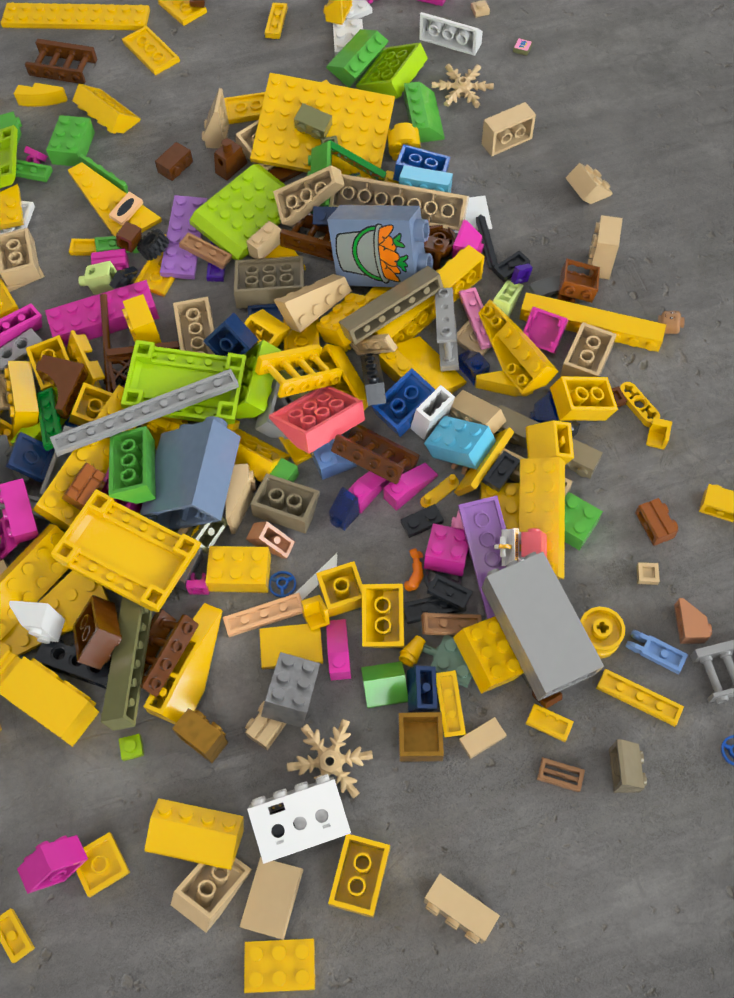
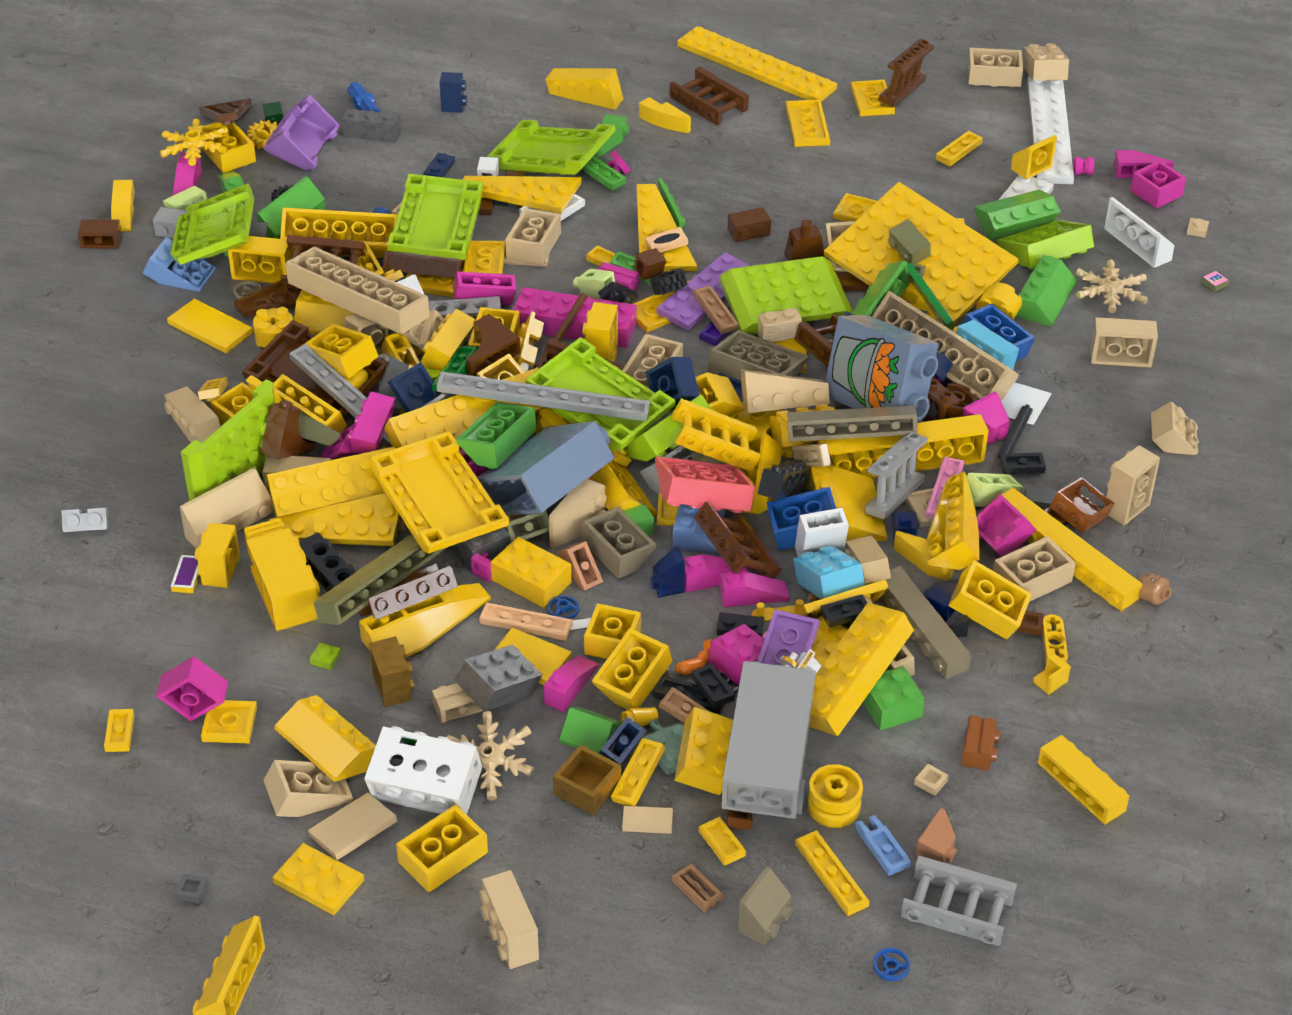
camera: 30 degrees right, 20 degrees down
(39, 620) = (323, 509): white slope -> none
(70, 139) = (665, 161): bright green brick -> none
(84, 485) = (442, 422): dark orange brick -> none
(96, 632) = (365, 545): reddish brown brick -> none
(104, 109) = (718, 153): yellow slope -> none
(216, 123) = (818, 204): tan slope -> none
(299, 197) = (849, 295): tan wedge -> none
(315, 612) = (572, 638): yellow panel -> none
(521, 273) = (1025, 472): dark purple plate -> none
(533, 541) = (826, 675): coral brick -> none
(550, 440) = (921, 608): yellow slope -> none

